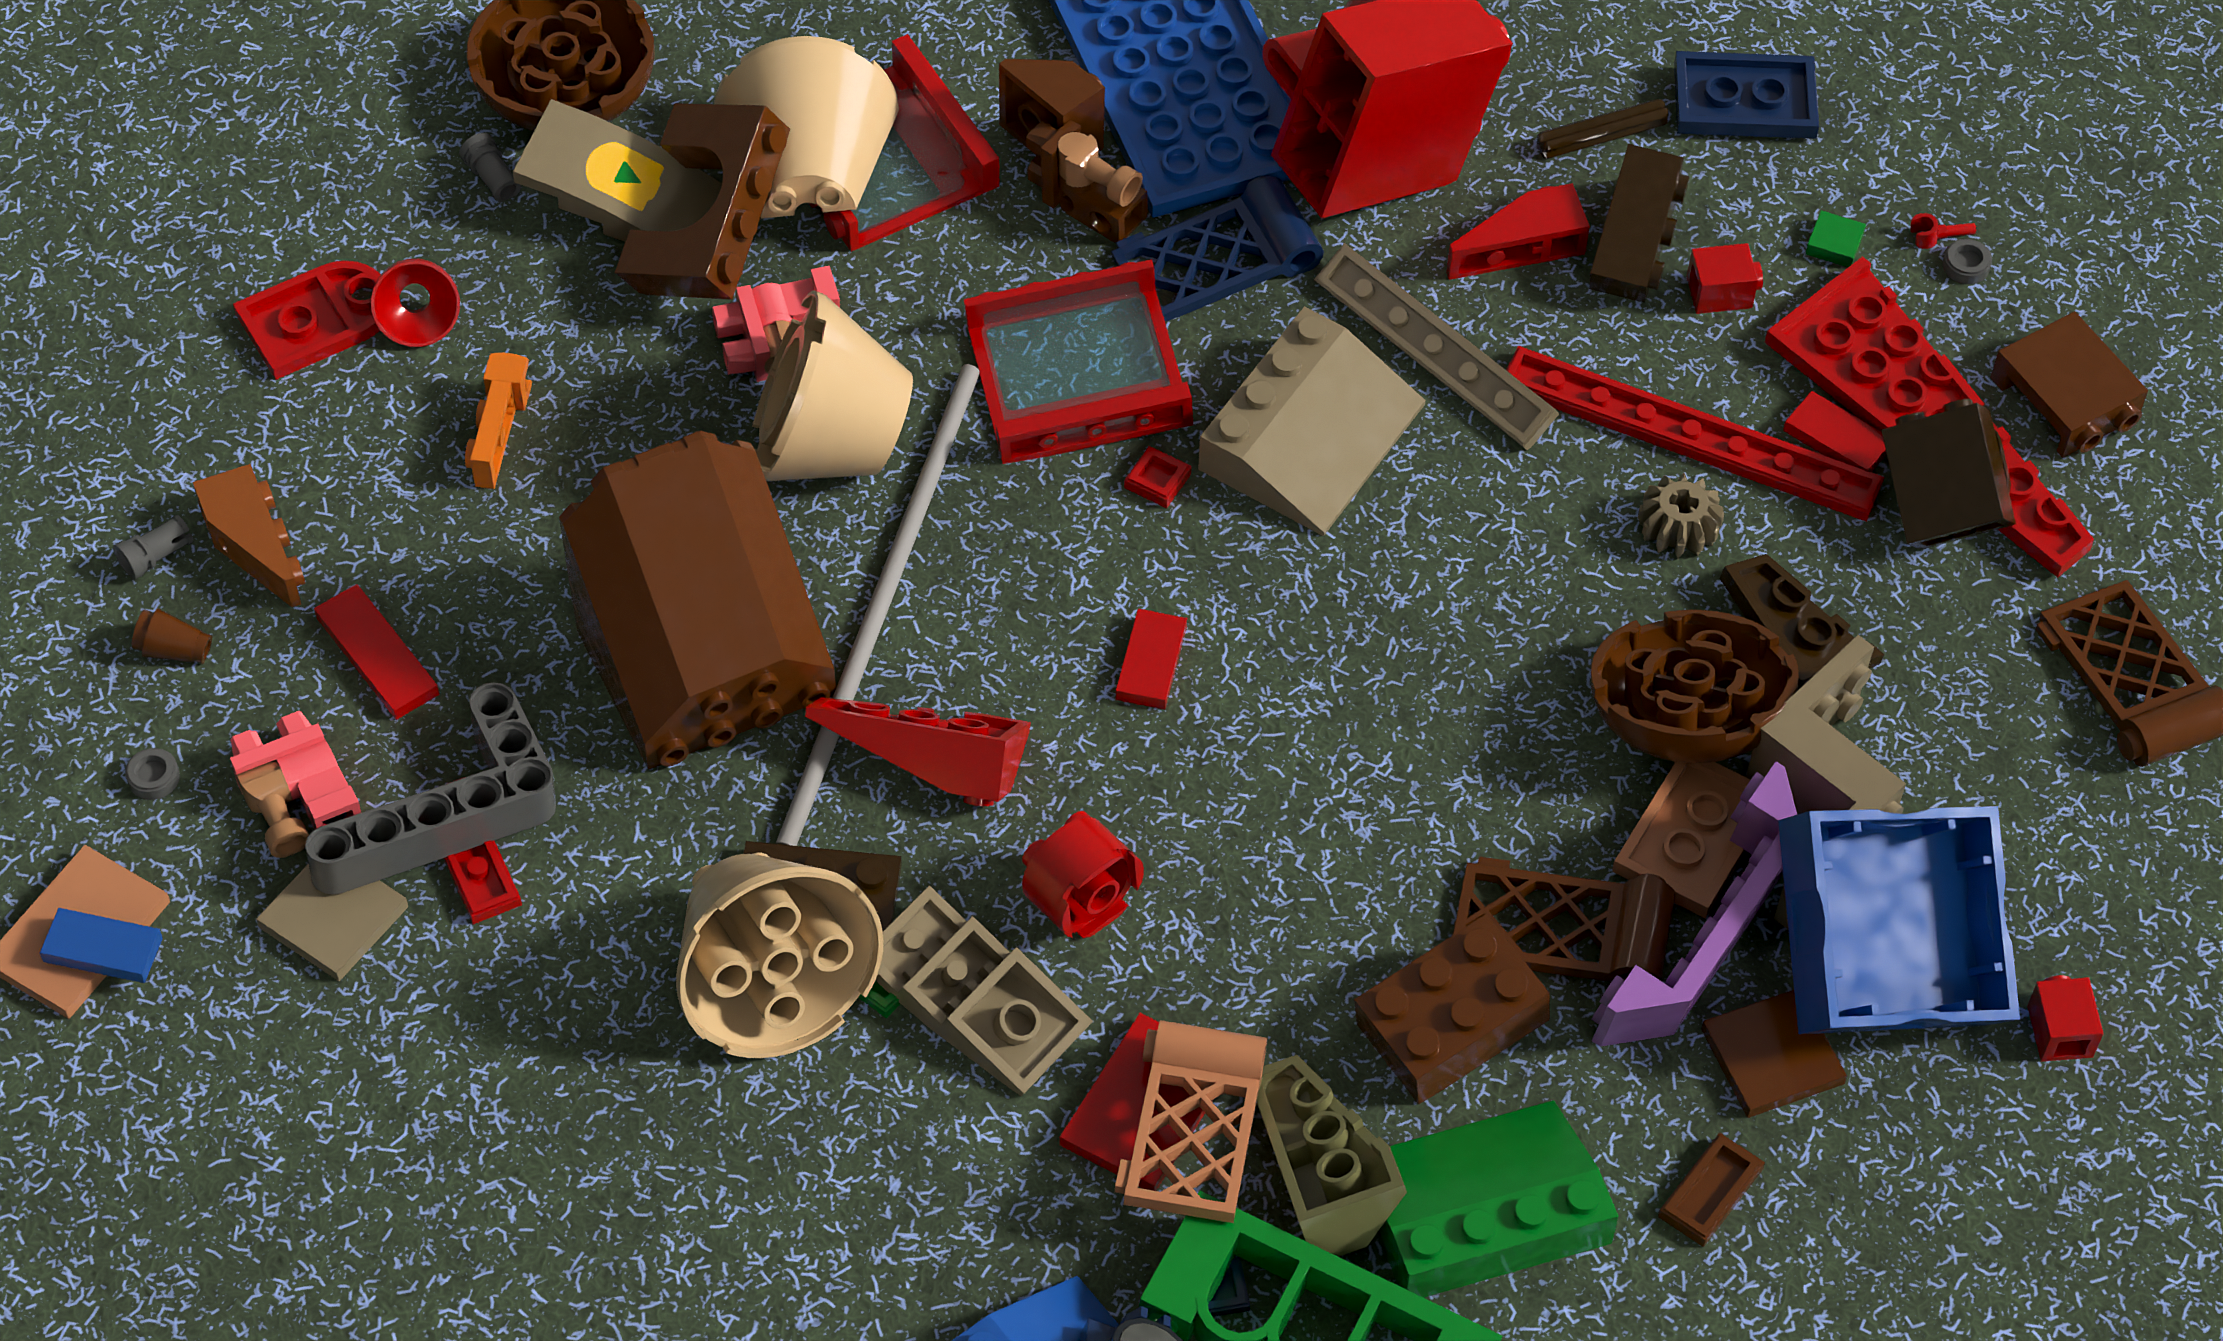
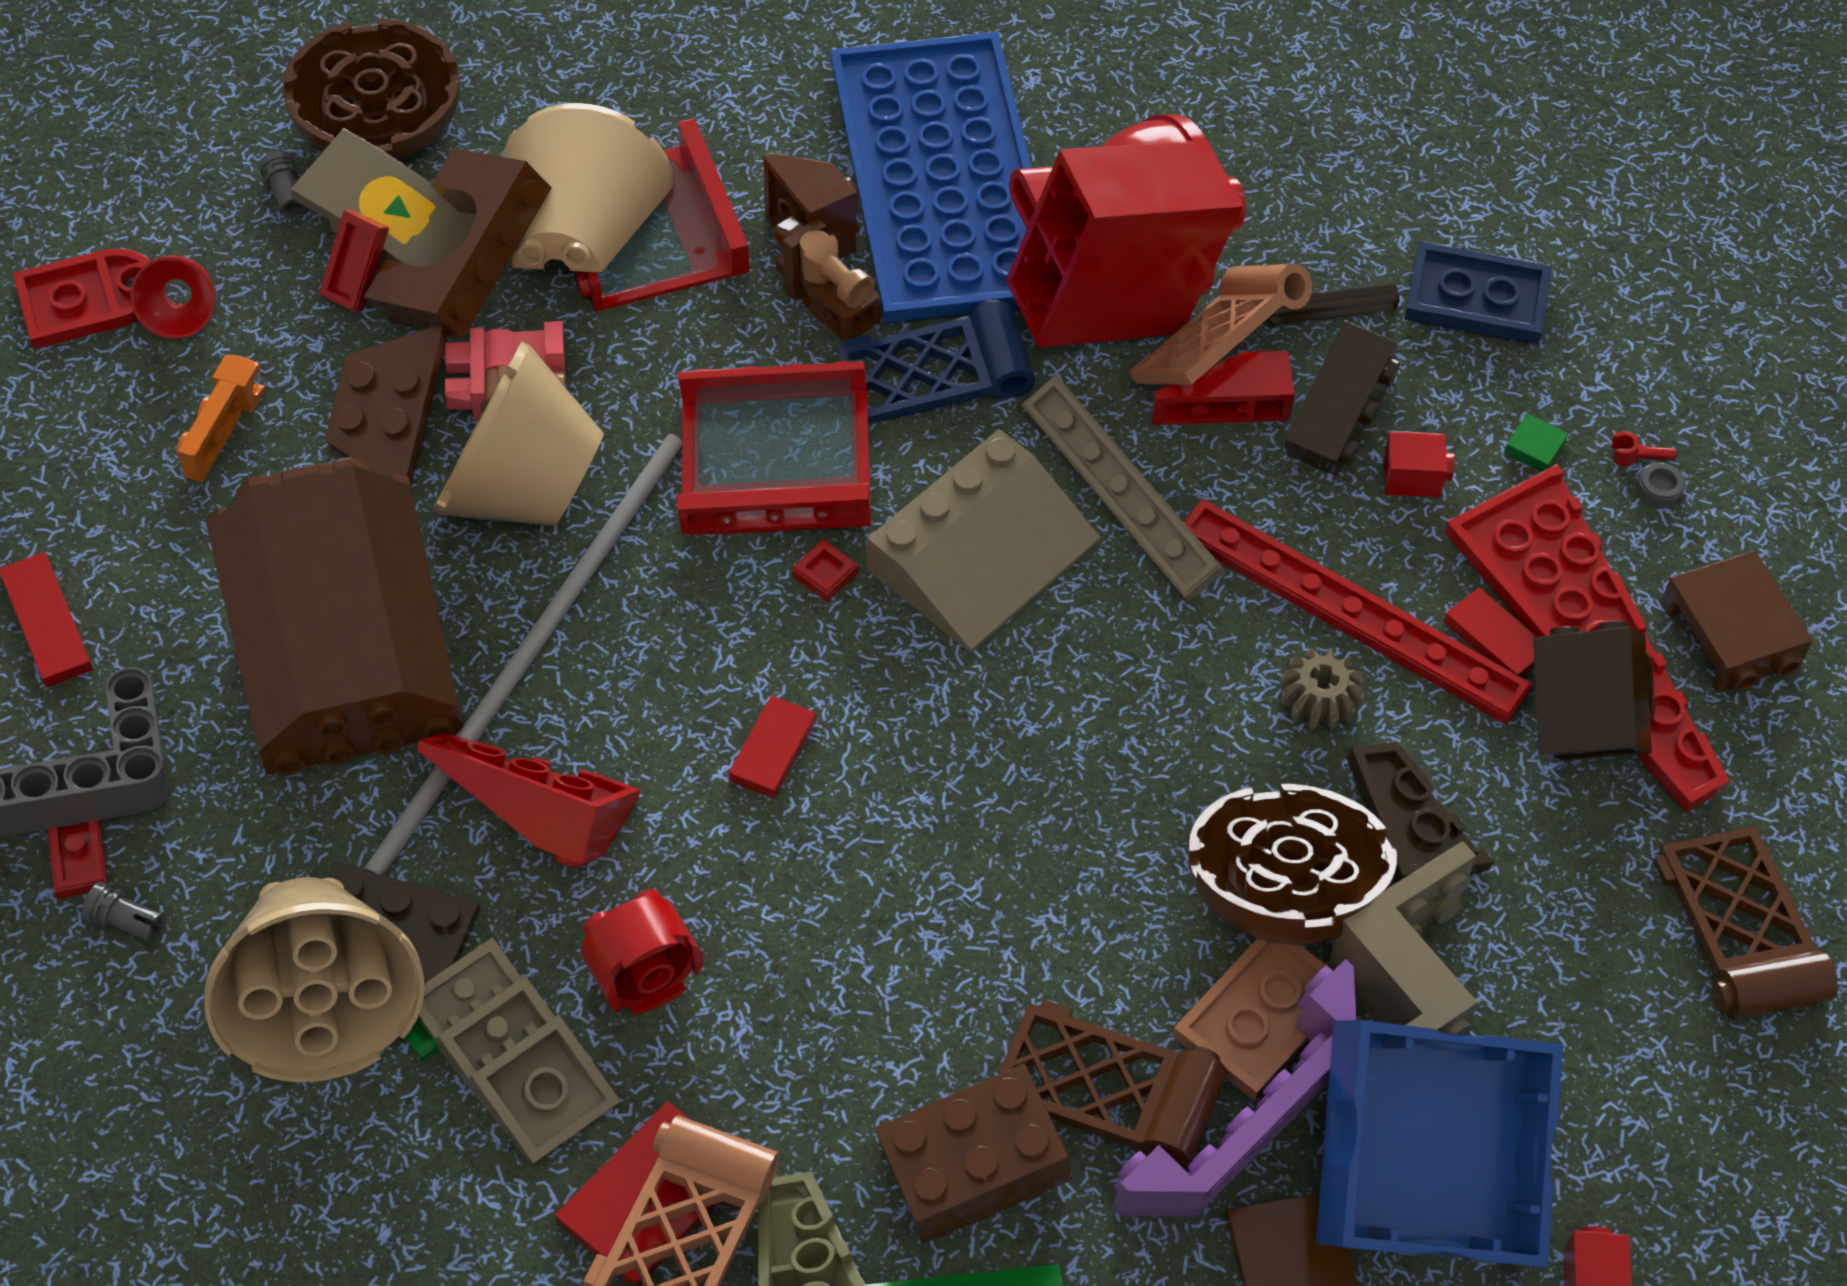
camera: 10 degrees right, 0 degrees up
(534, 923) = (112, 908): none -> dark grey pin
(593, 236) = (353, 260): none -> red tile
(666, 373) = (387, 401): none -> reddish brown wing
(1522, 138) = (1244, 303): none -> nougat piece

